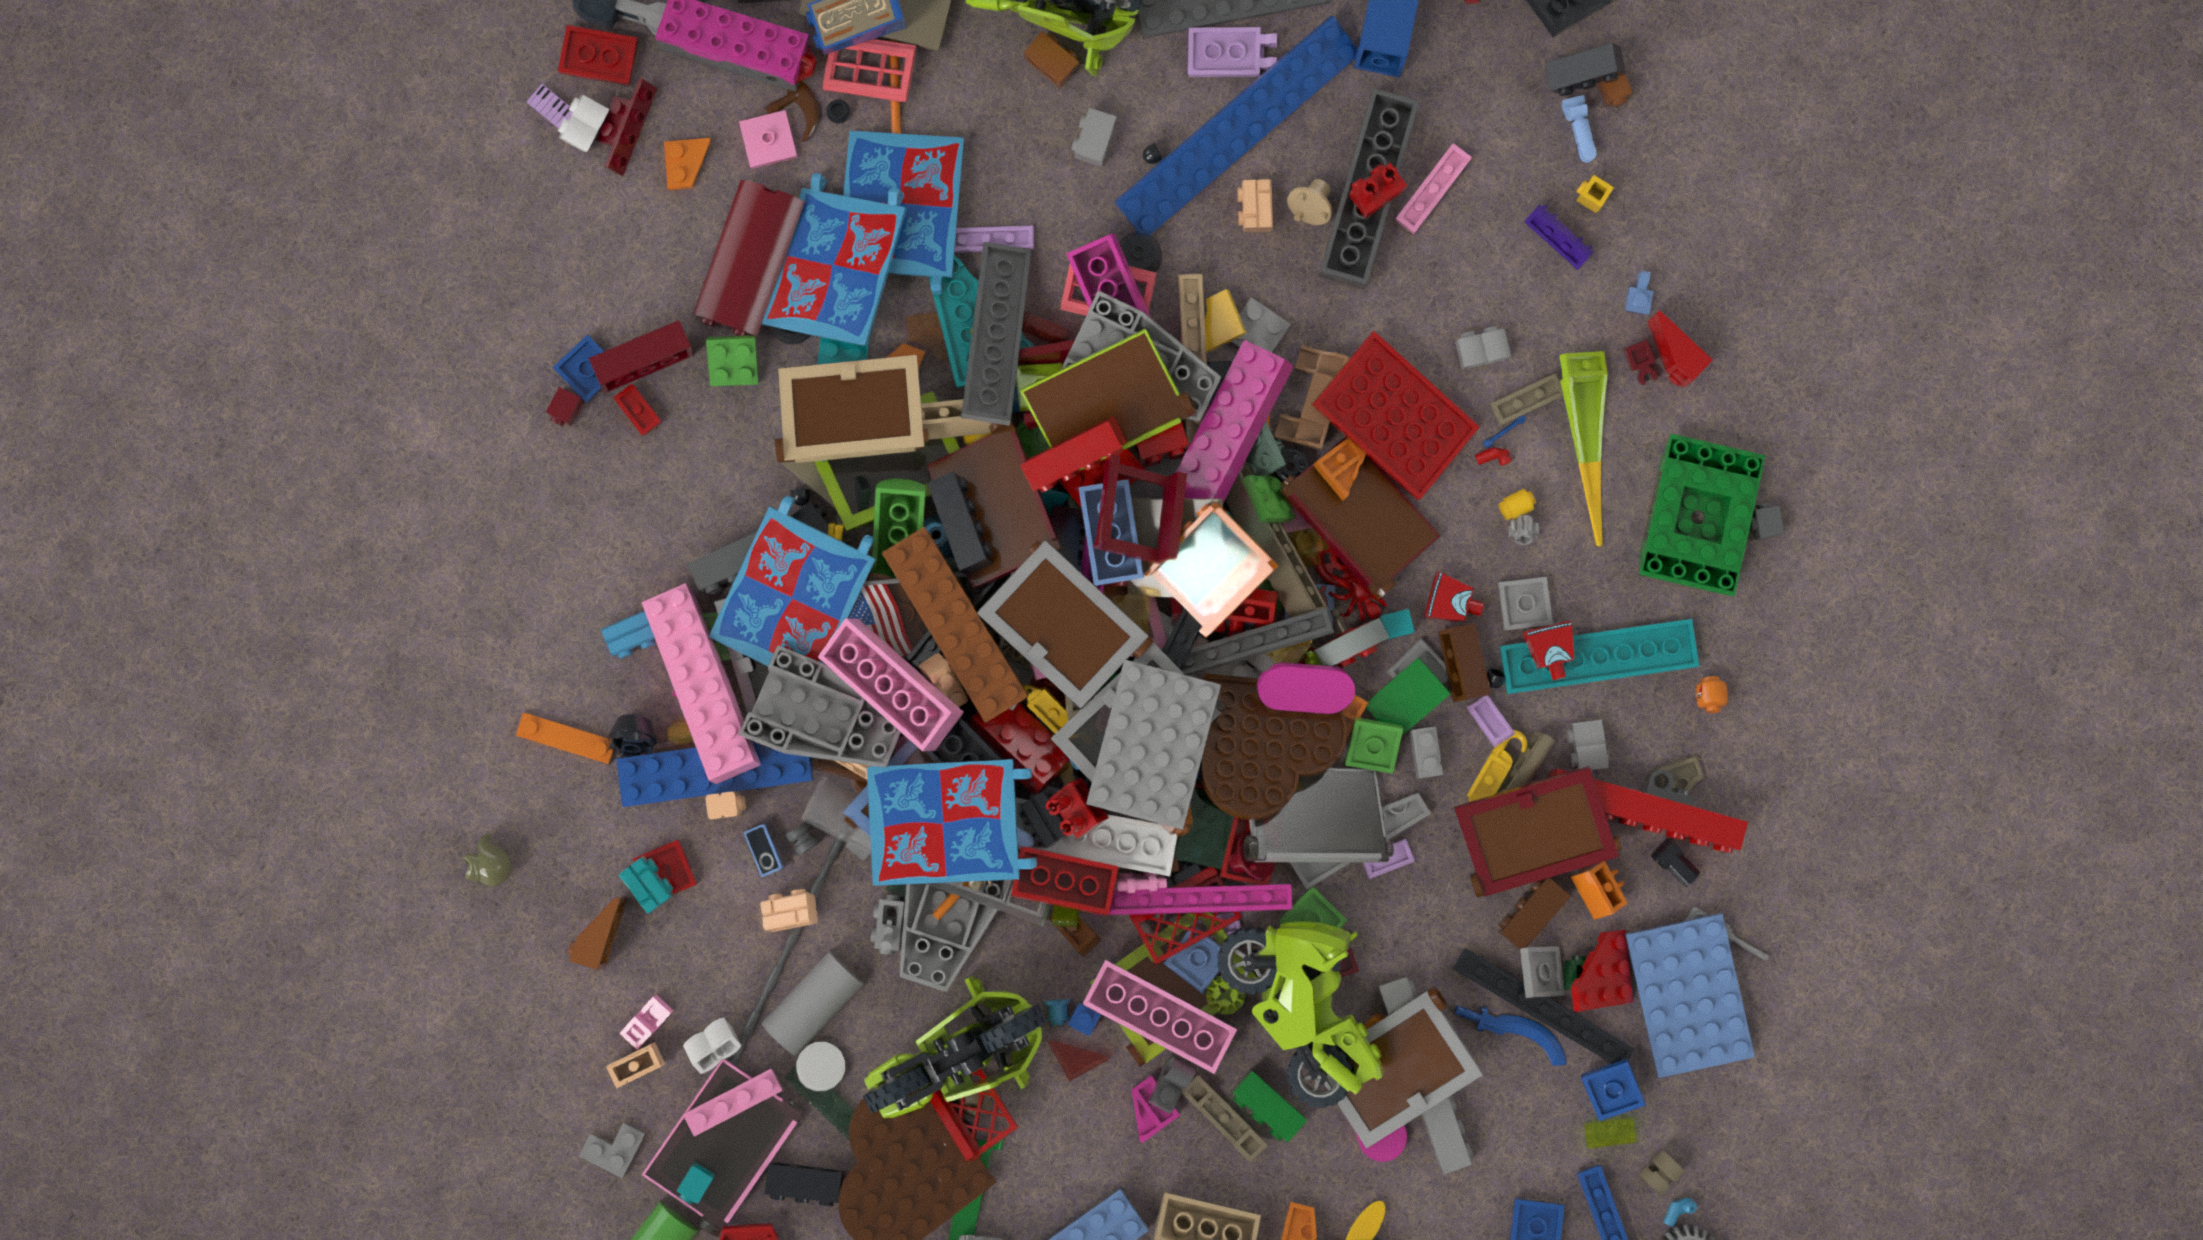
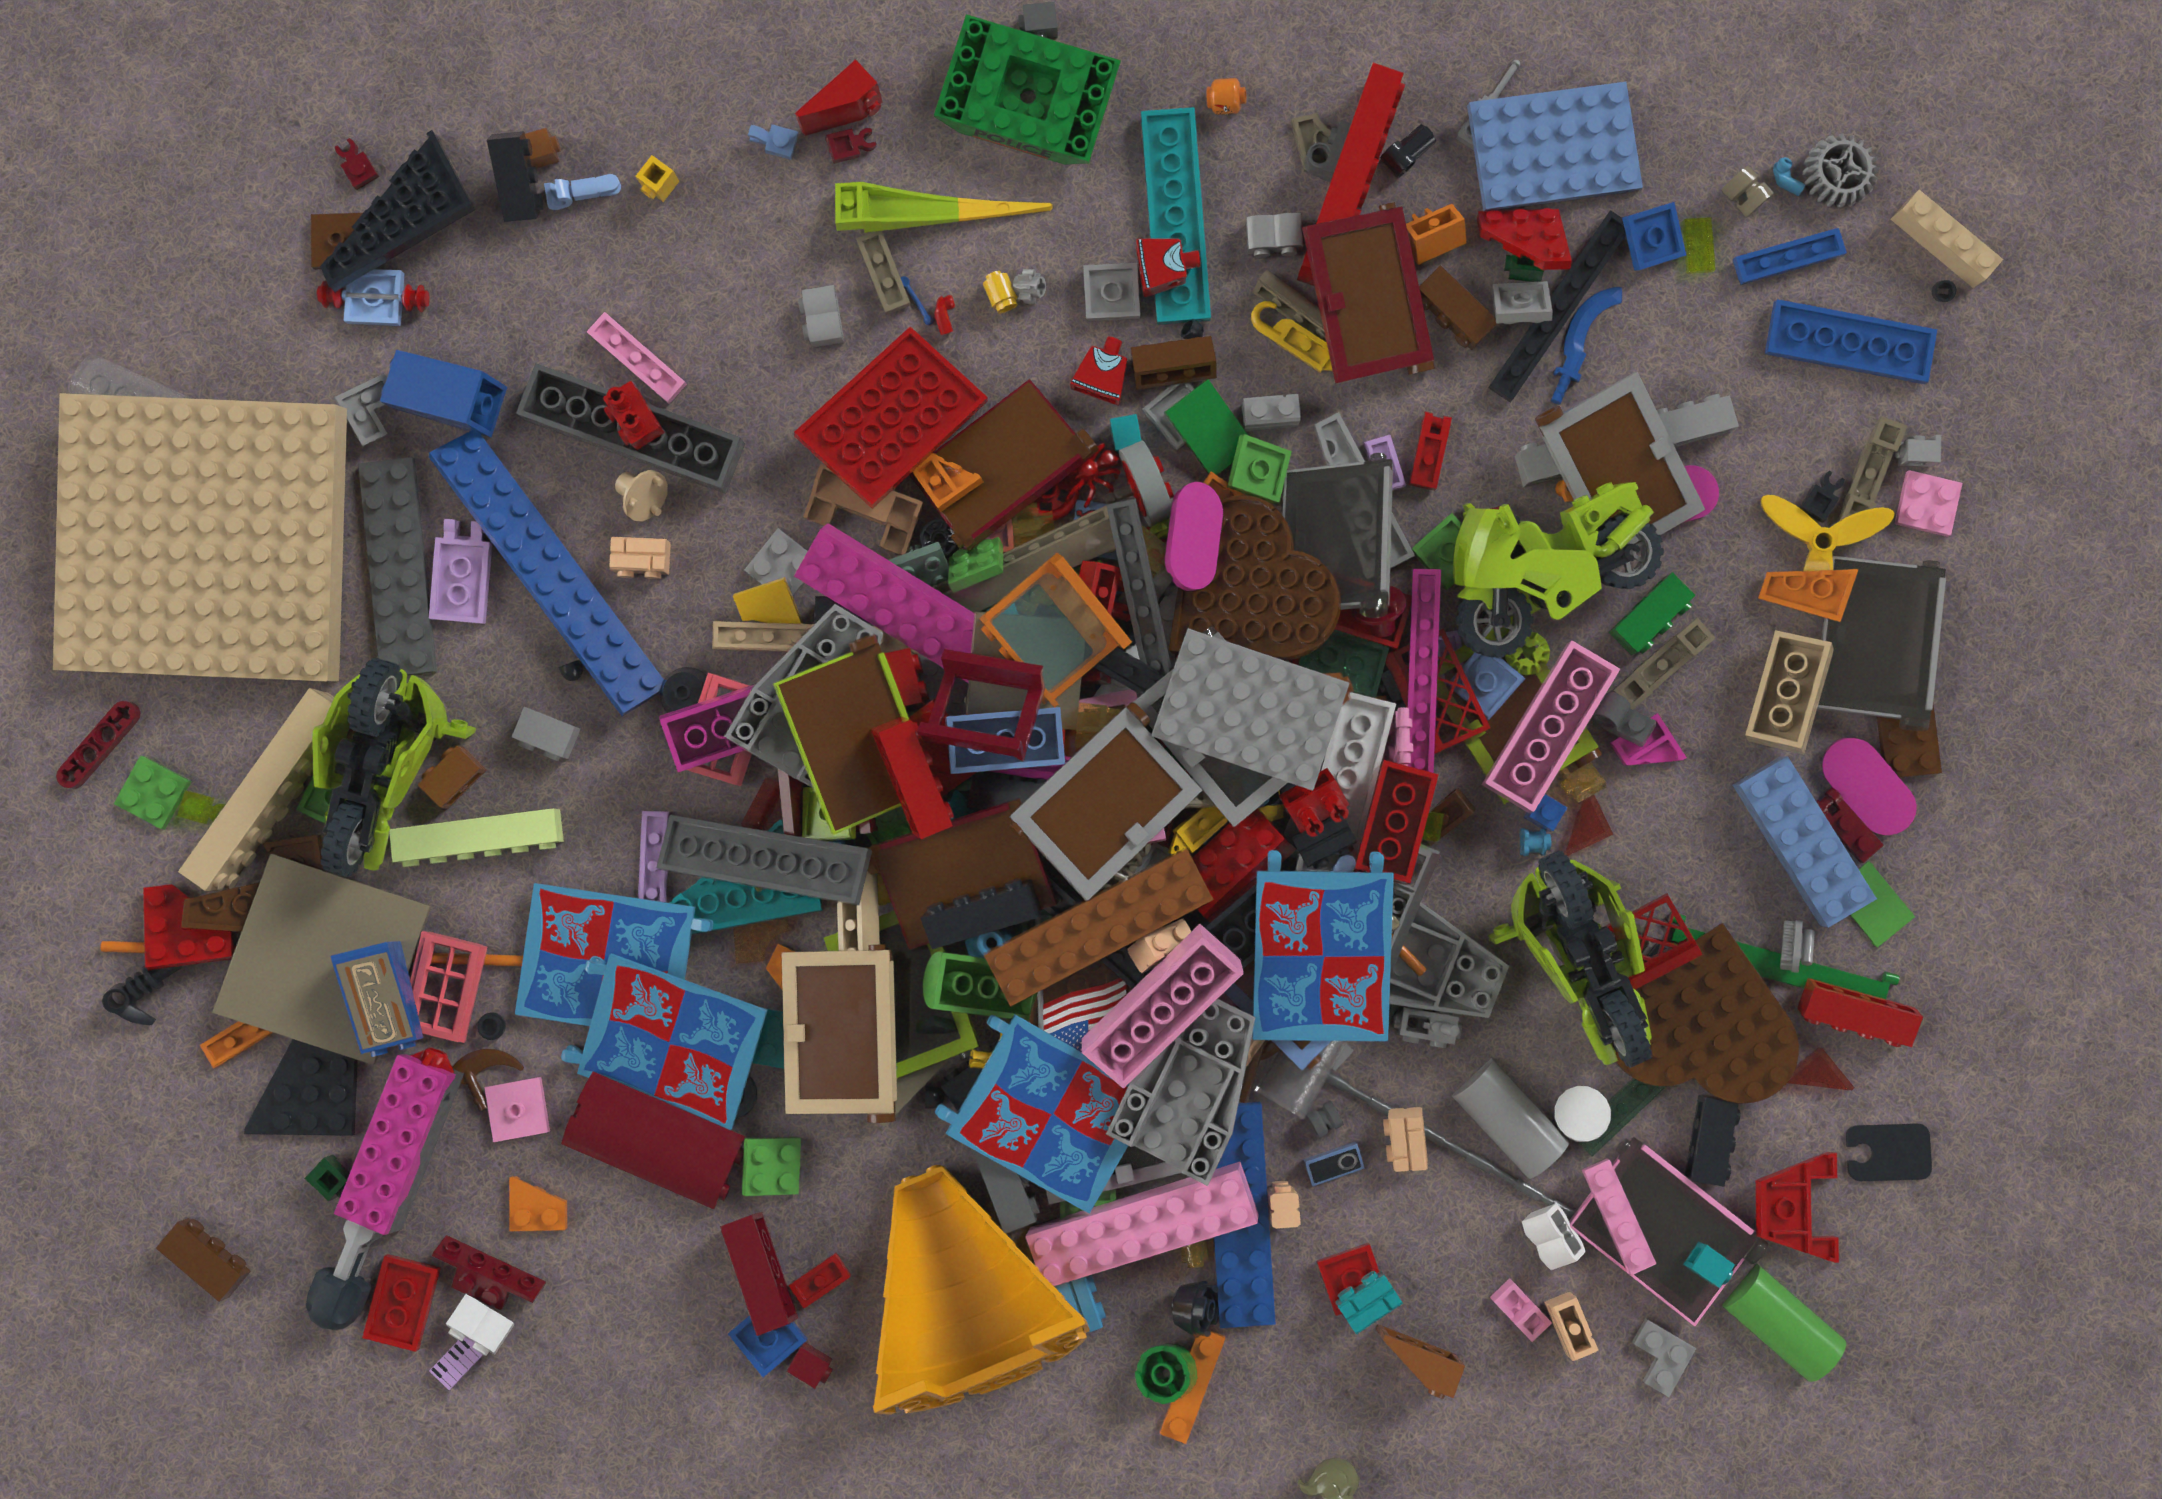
camera: 80 degrees left, 0 degrees up
(575, 726) = (1182, 1373): none -> green brick
(625, 531) = (961, 1302): none -> light orange cone
(1001, 85) = (476, 835): none -> yellowish green brick
(1113, 1051) = (1582, 782): none -> clear yellow bracket
(1401, 898) = (1430, 452): none -> red plate
(1490, 720) = (1239, 339): lavender tile -> none
(1558, 236) = (702, 223): dark purple plate -> none

